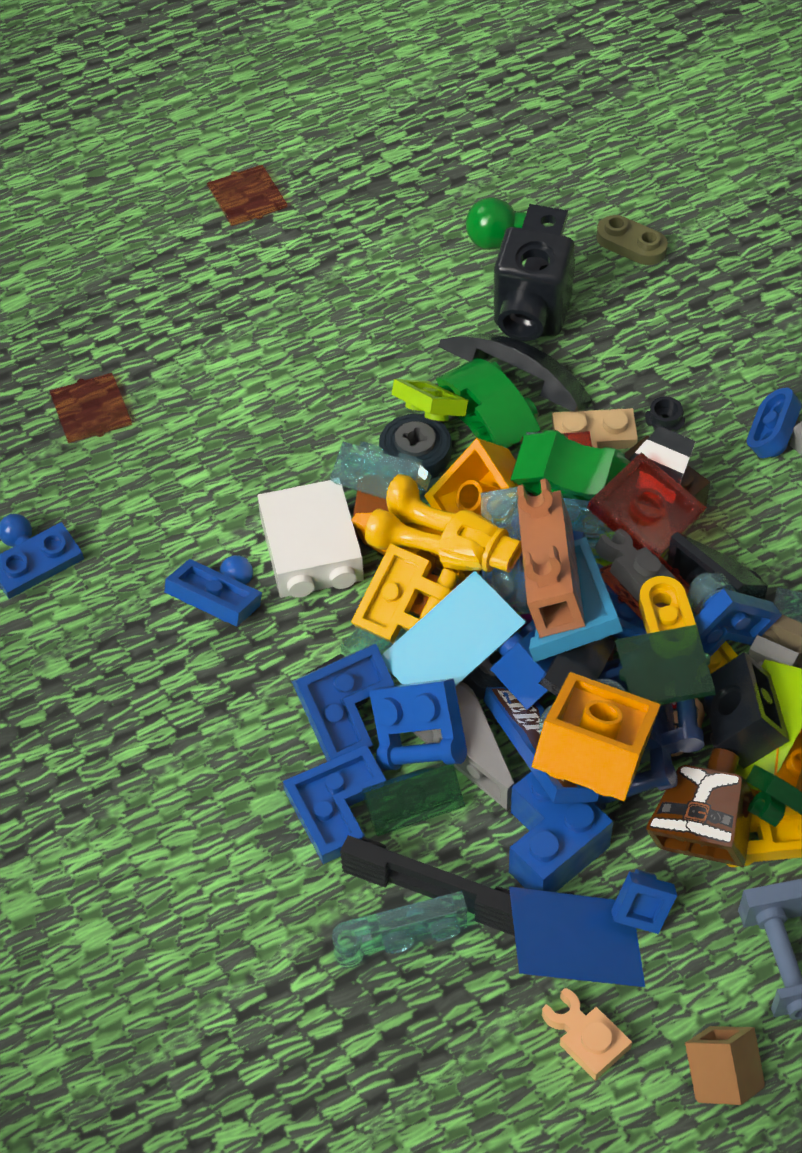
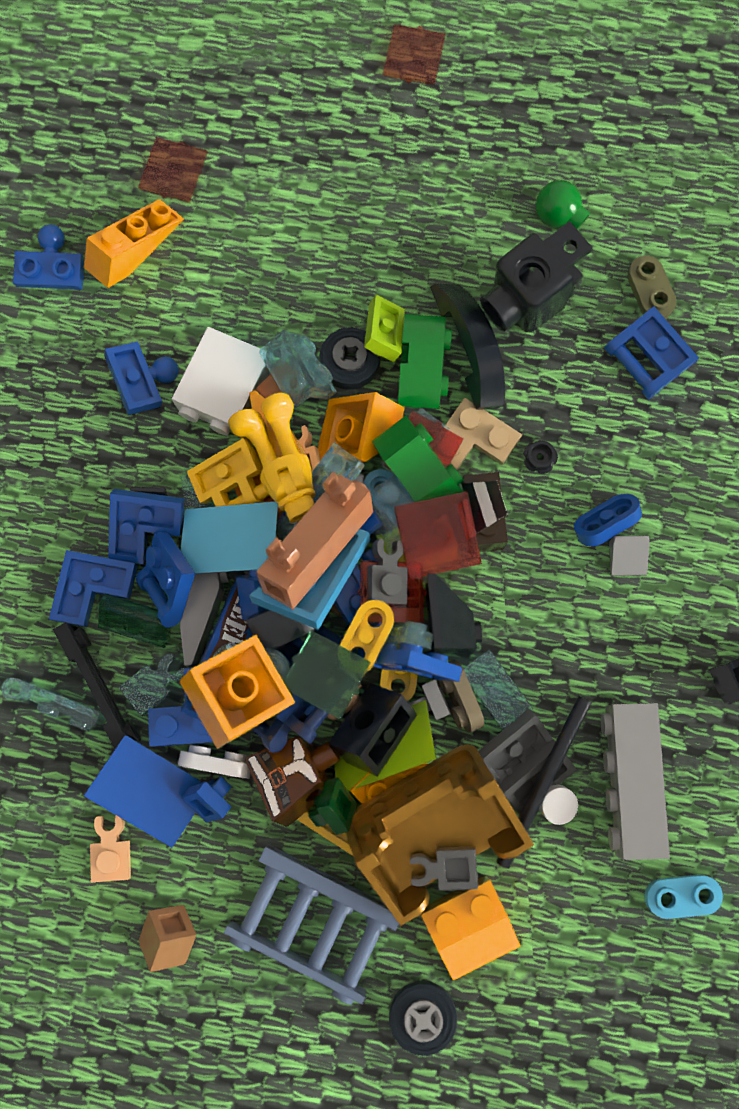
camera: 40 degrees right, 25 degrees up
(104, 486) = (126, 243): none -> light orange slope
(484, 847) = (149, 687): none -> clear light blue plate
(606, 871) = (199, 758): none -> white plate
(685, 271) = (660, 345): none -> blue plate

